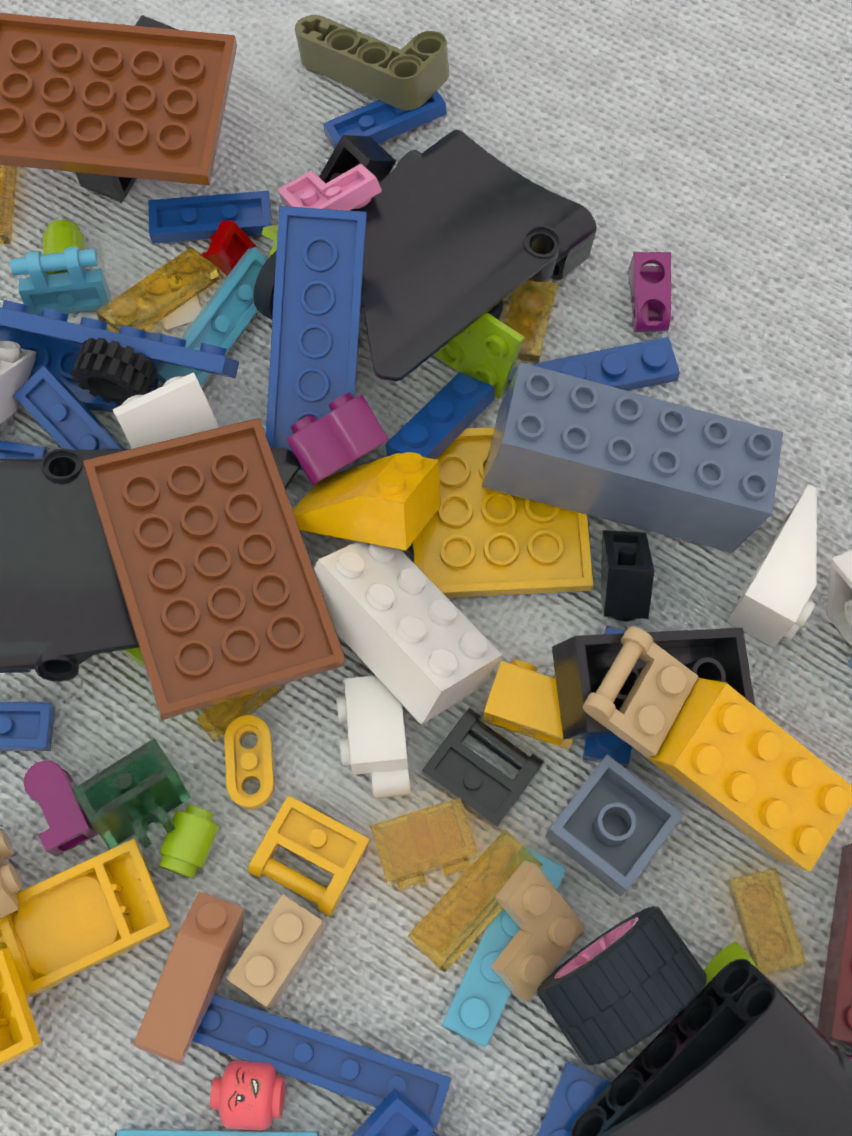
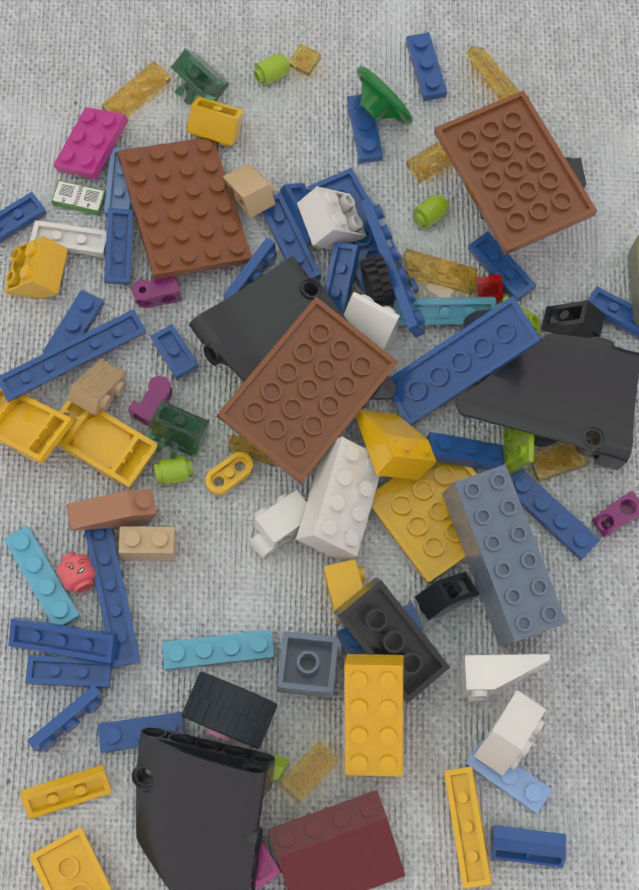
camera: 55 degrees right, 0 degrees up
(62, 292) = (410, 222): medium azure plate -> none
(316, 840) = (211, 529): yellow plate -> none
(336, 438) = (417, 406): magenta brick -> none
(344, 192) = (543, 315): bright pink plate -> none
(425, 844) = (242, 580): clear yellow brick -> none
(469, 903) = (230, 621): clear yellow plate -> none
(475, 780) = (289, 585): black plate -> none
(545, 931) = (235, 663): tan plate -> none
(651, 701) = (375, 639): tan plate -> none

